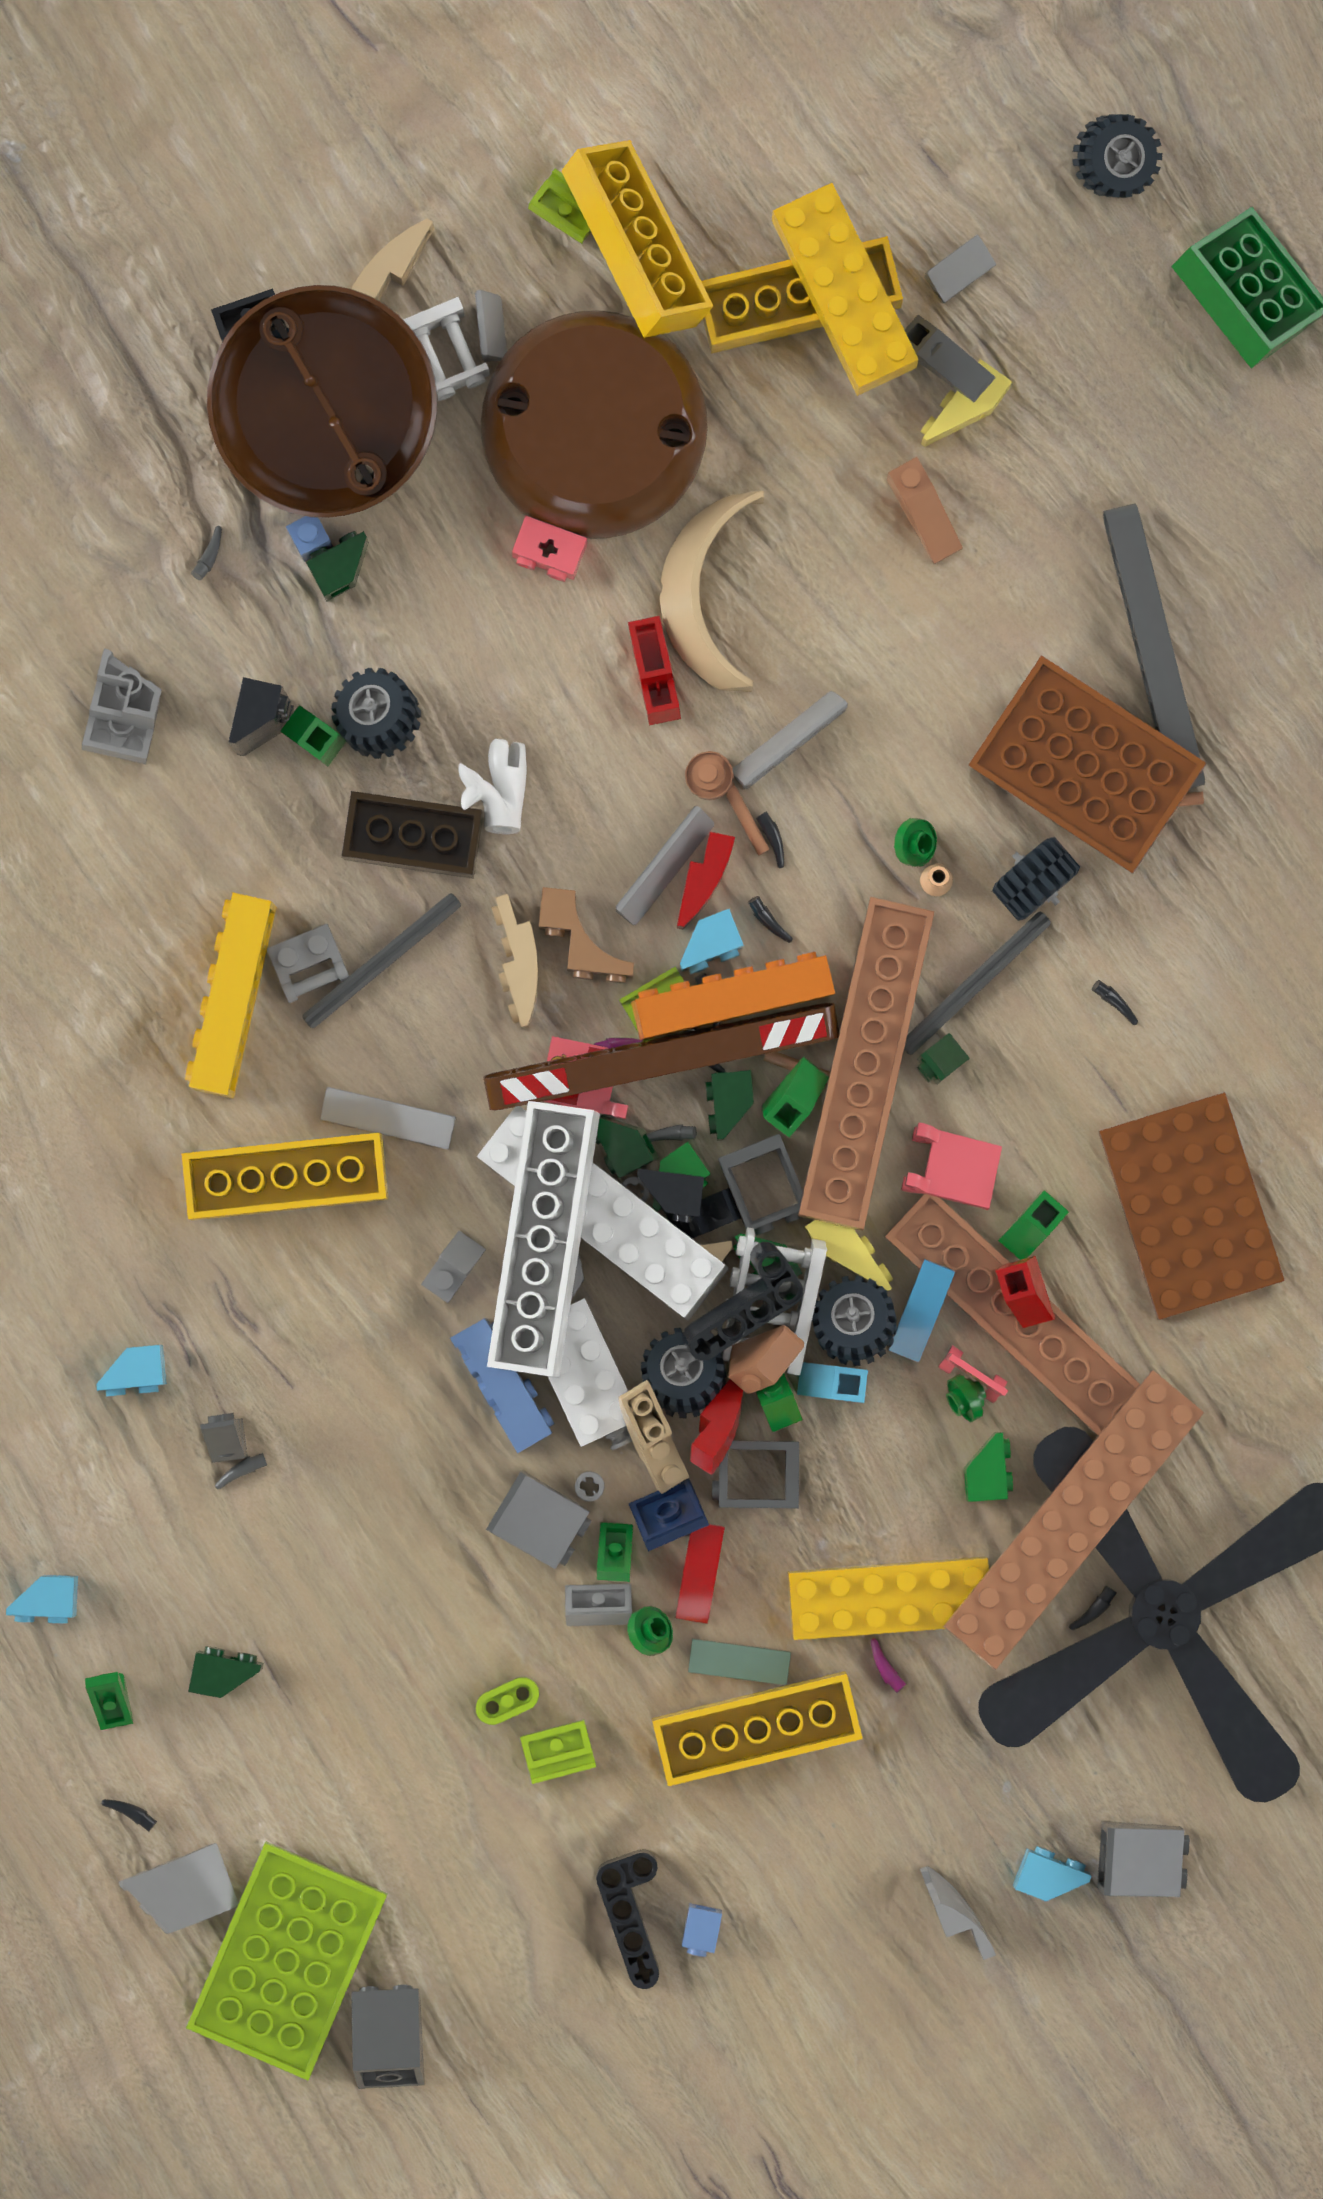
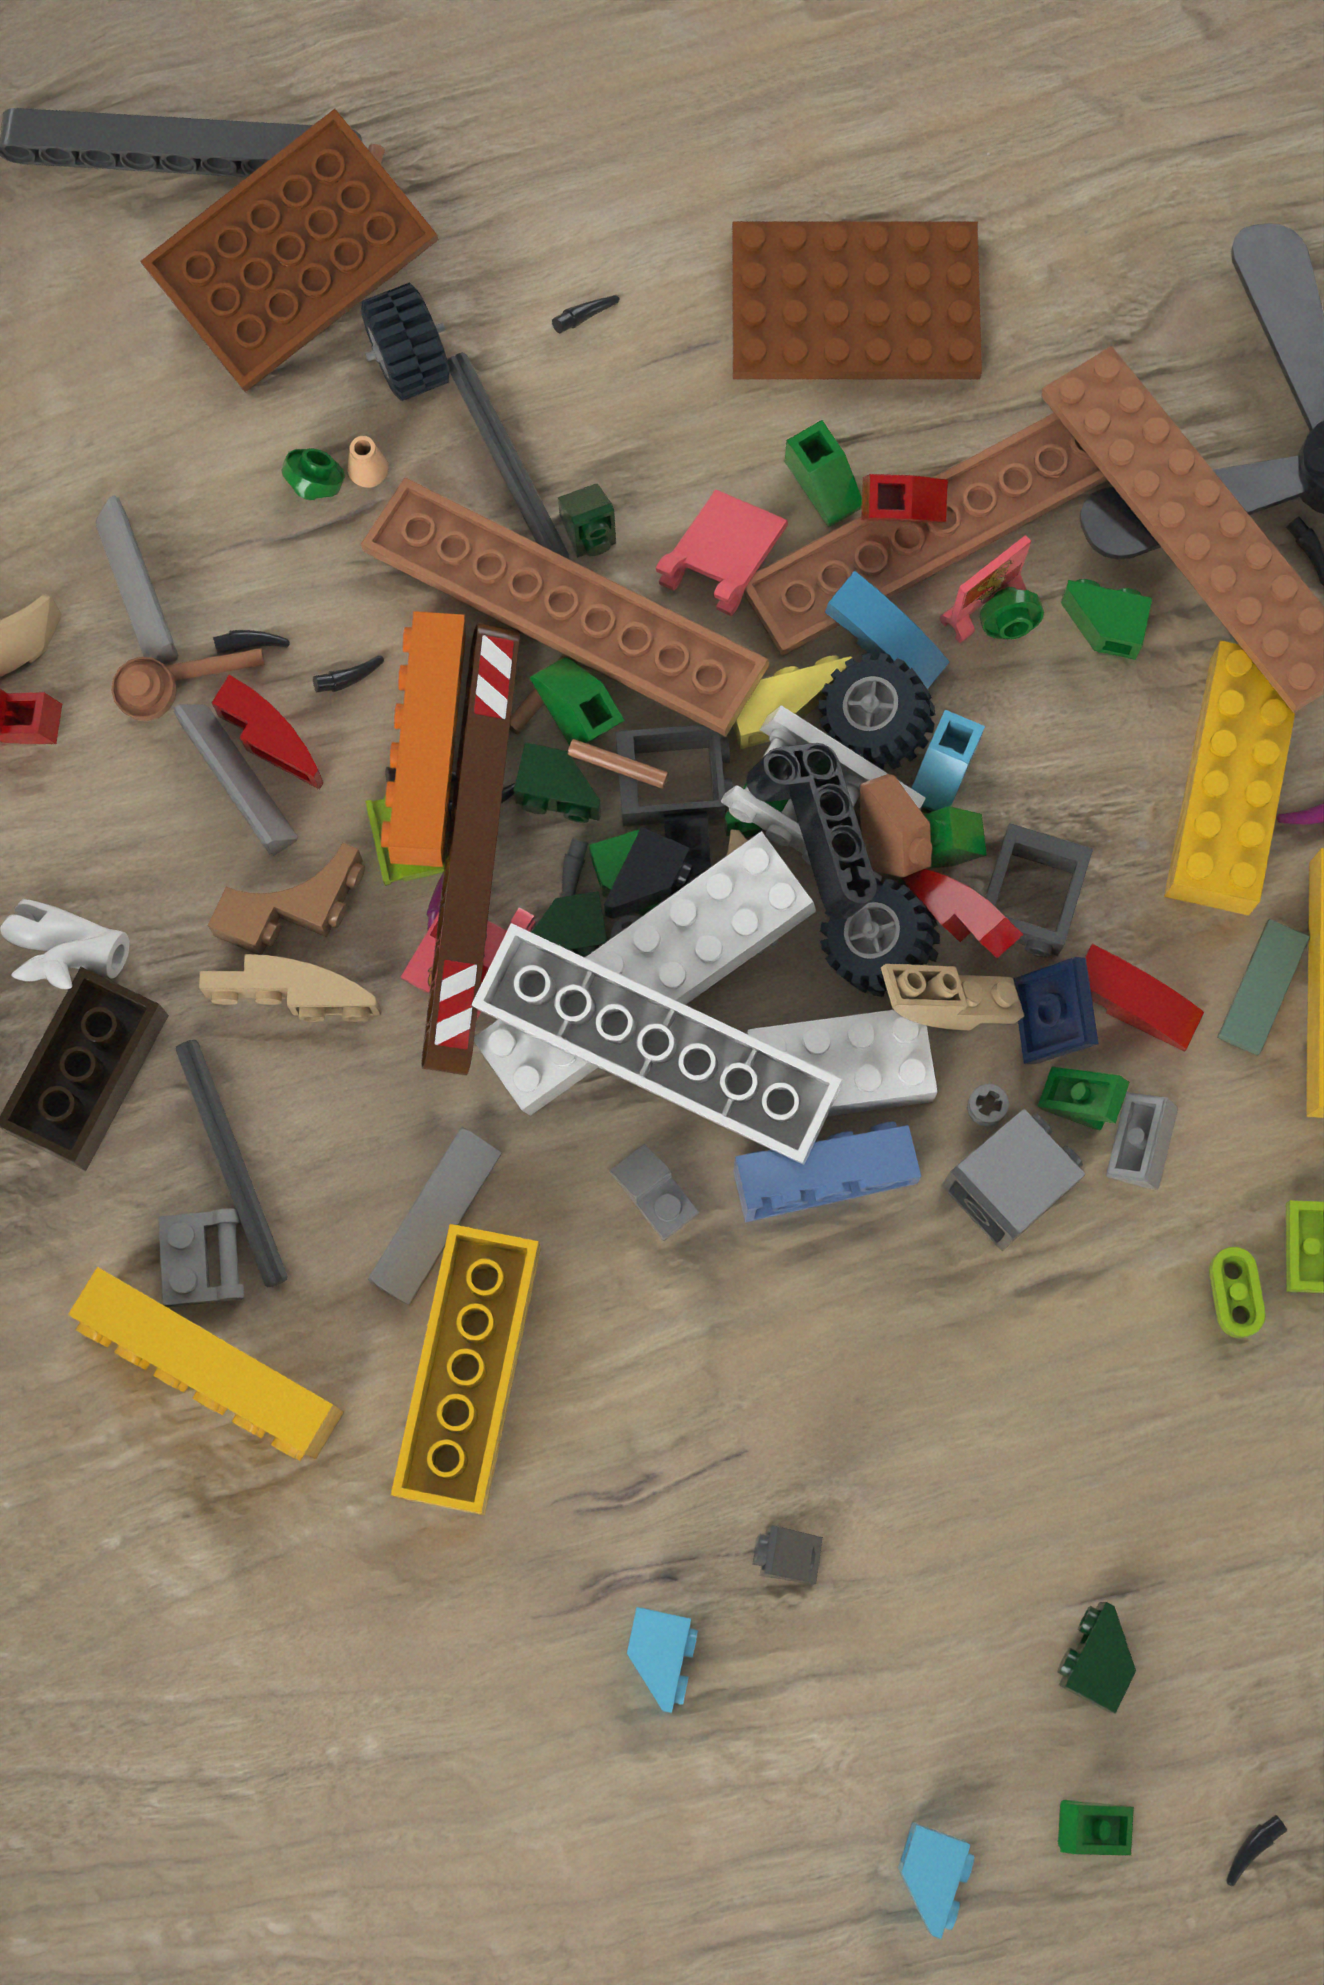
camera: 70 degrees left, 10 degrees down
(244, 1467) = (833, 1549): dark grey helmet -> none
(619, 1438) = (940, 1044): light grey bush -> none
(650, 1631) = (1196, 1082): green plate -> none
(712, 939) = (346, 746): medium azure slope -> none
(753, 1143) = (618, 763): none -> nougat piece

